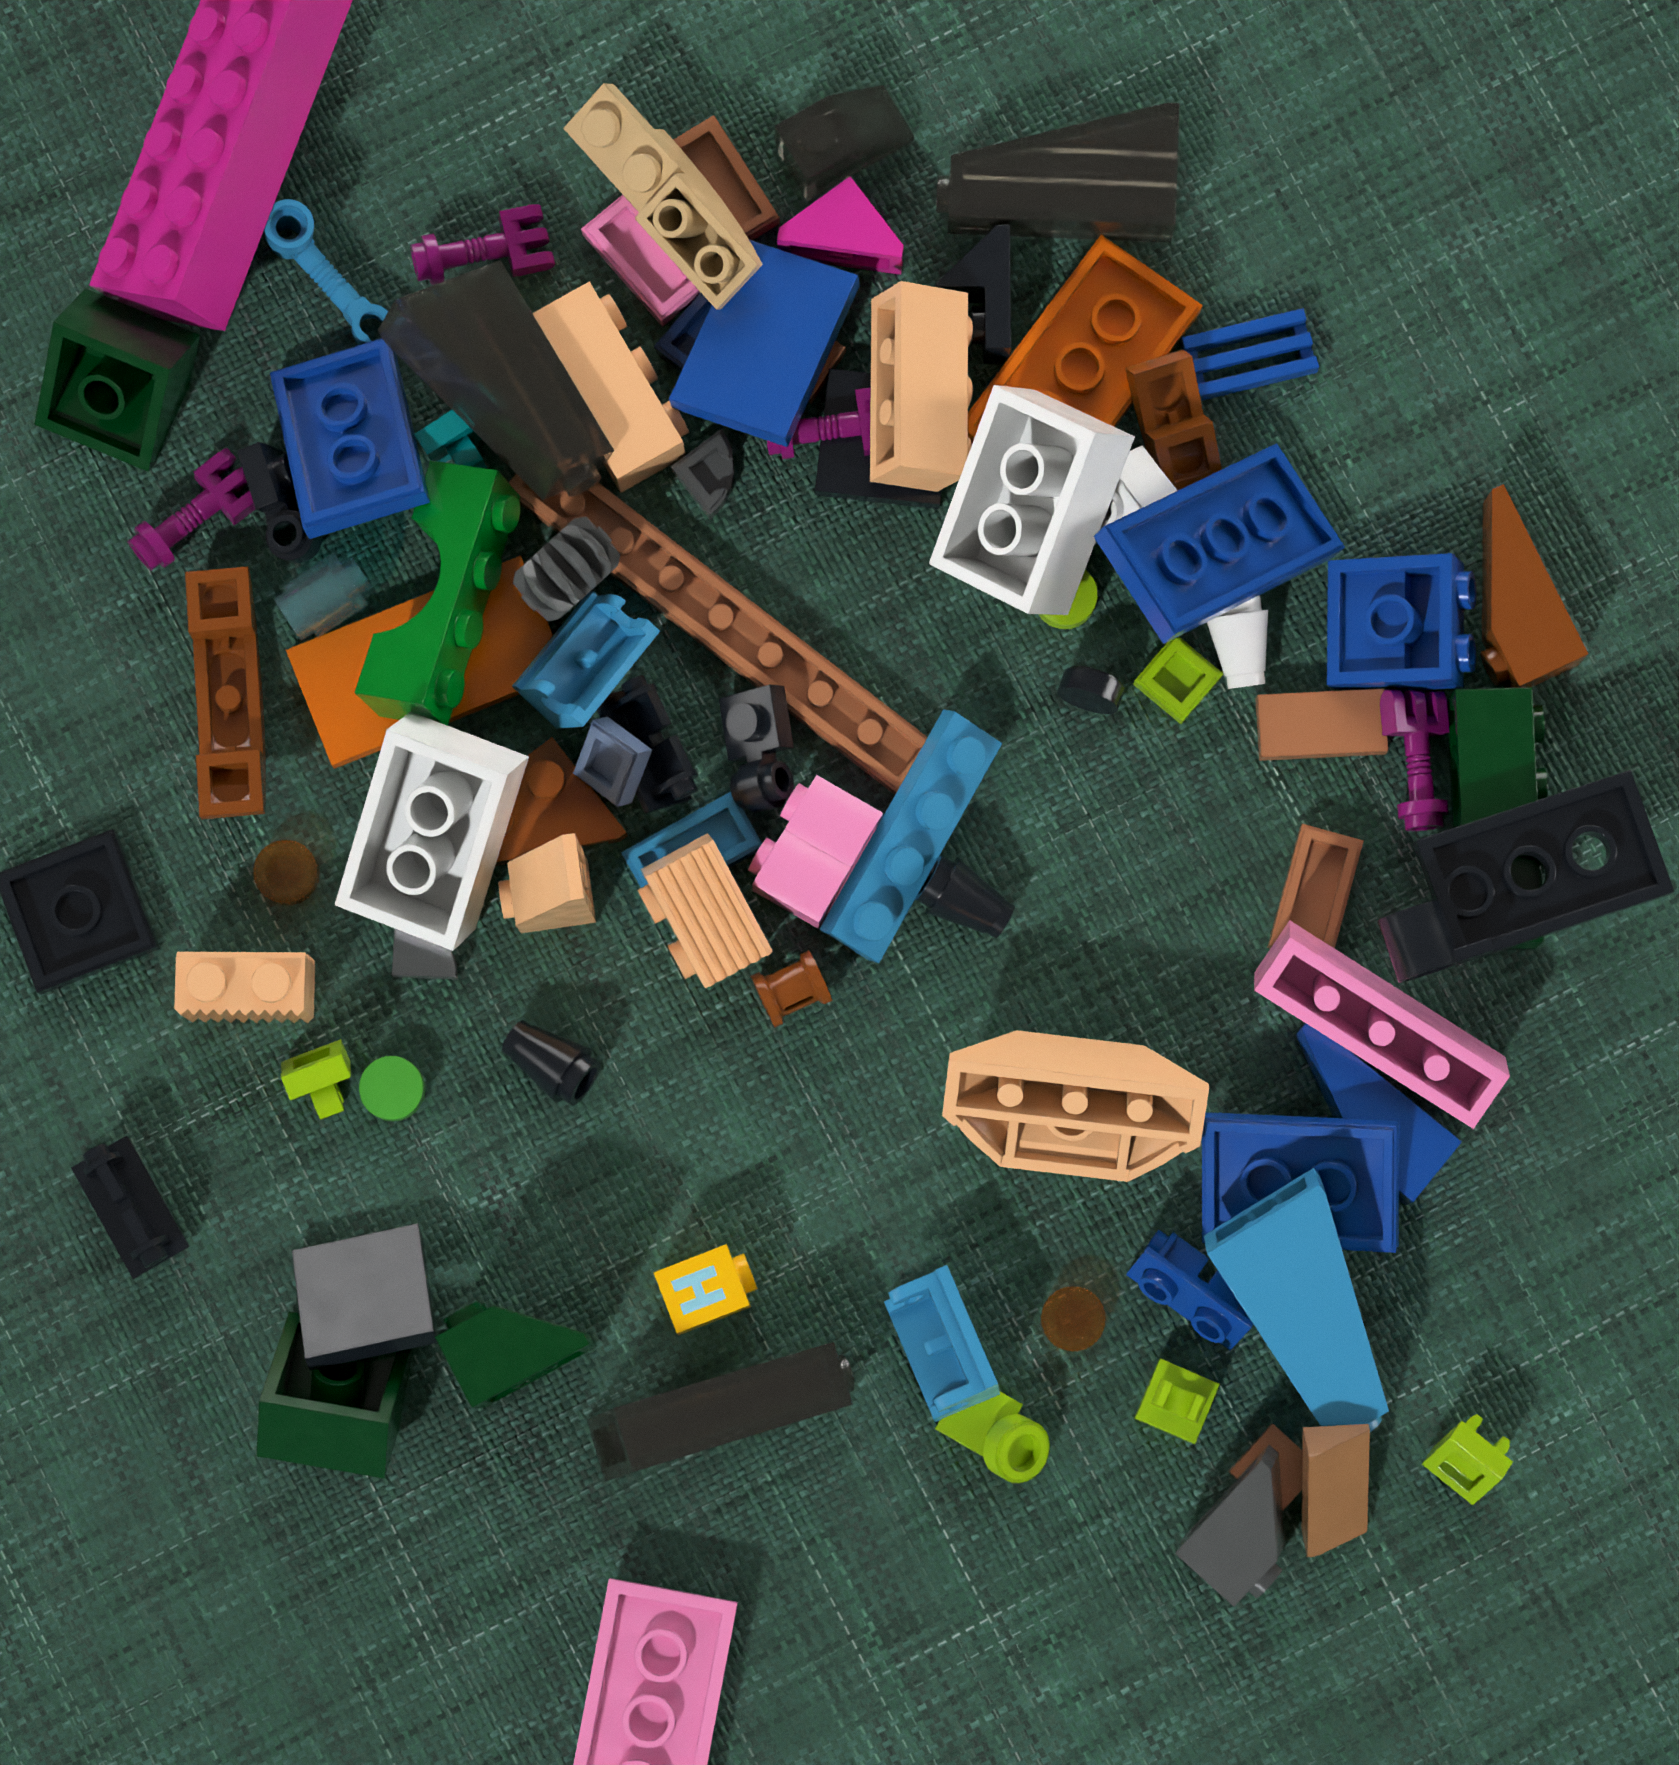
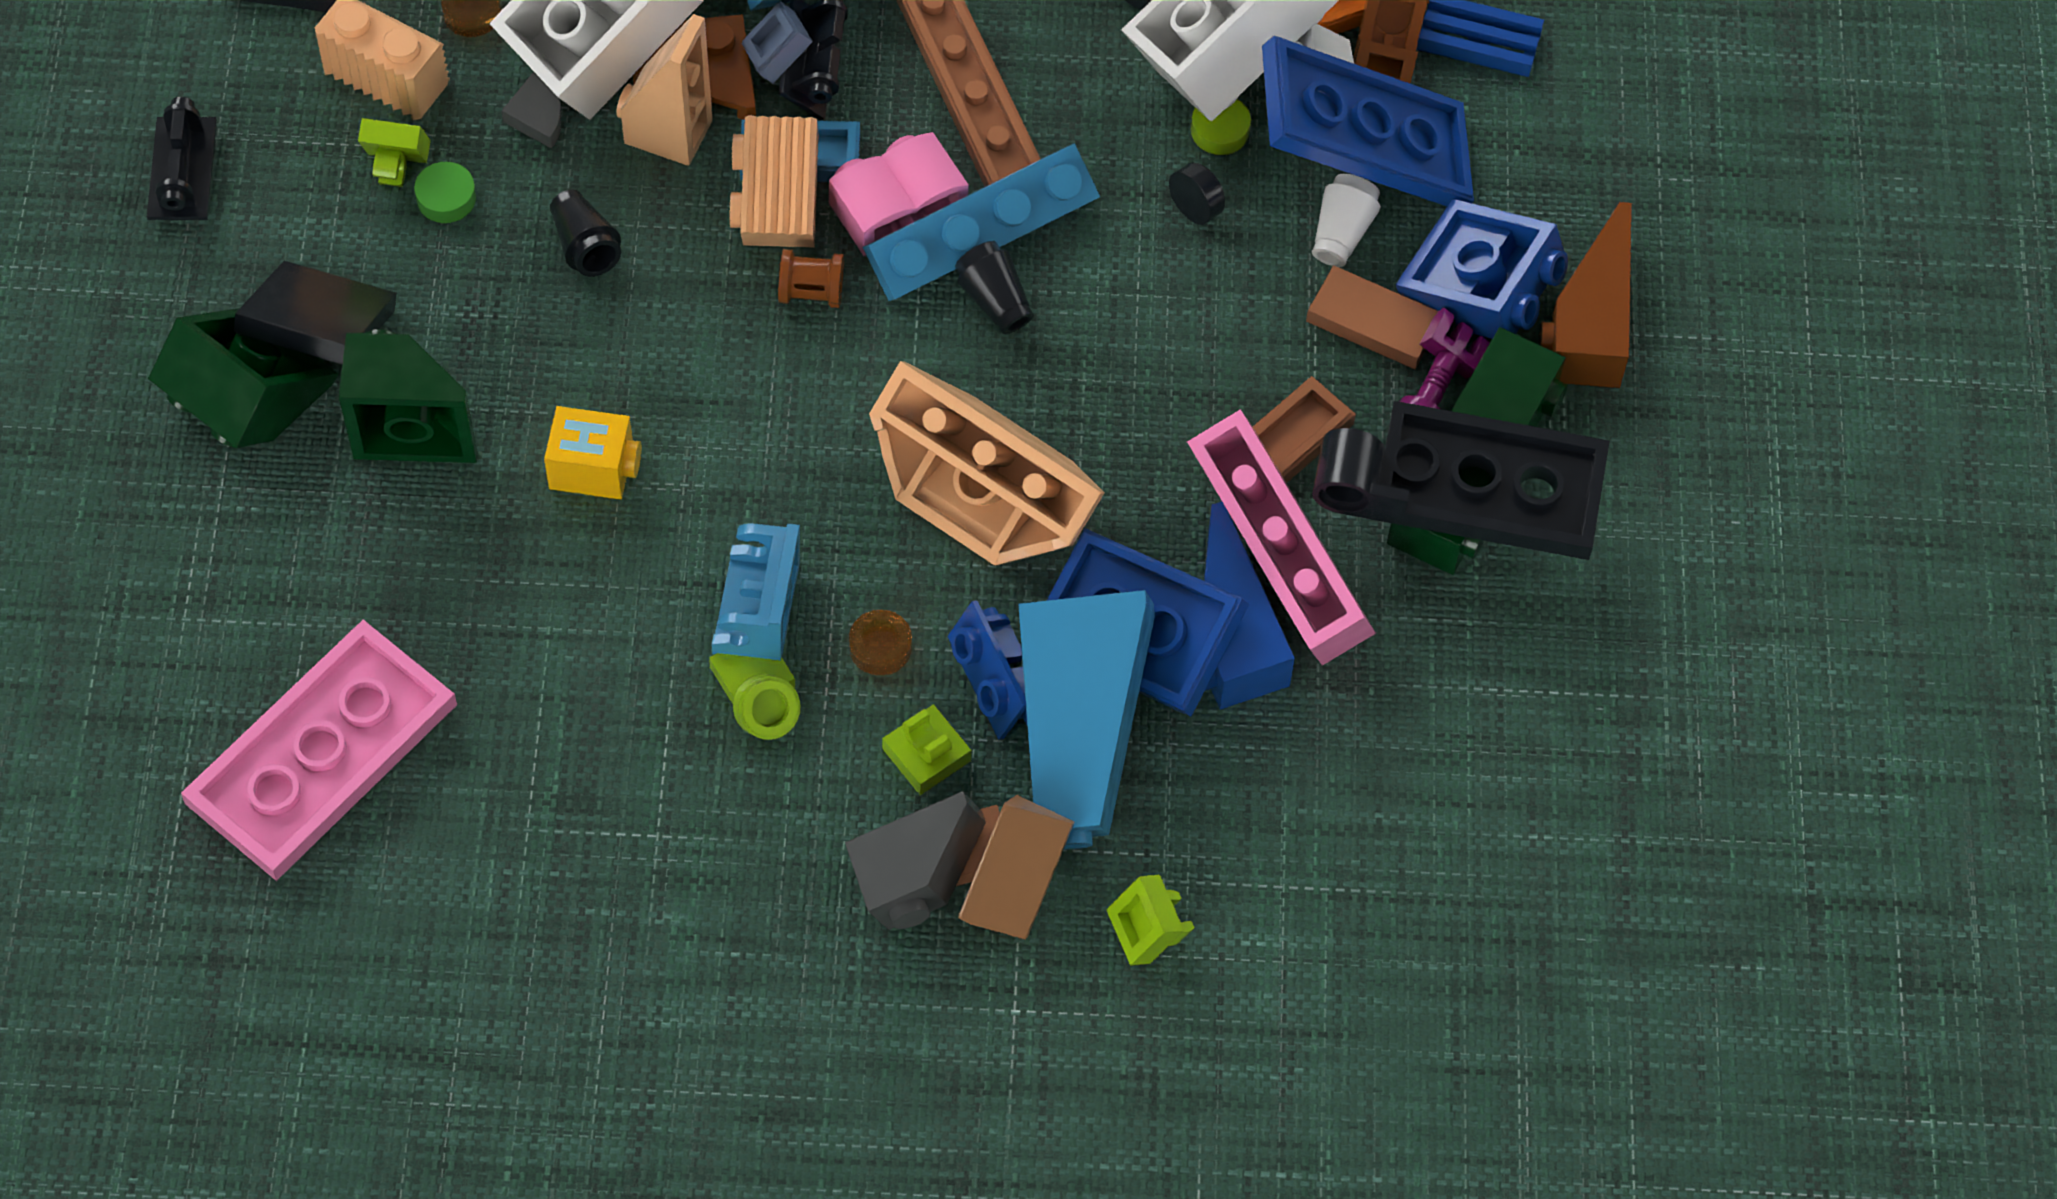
camera: 25 degrees right, 20 degrees down
(721, 1410) = (539, 540): clear smoke slope -> none
(754, 731) = (905, 88): black plate -> none
(1178, 679) = (1275, 228): lime tile -> none

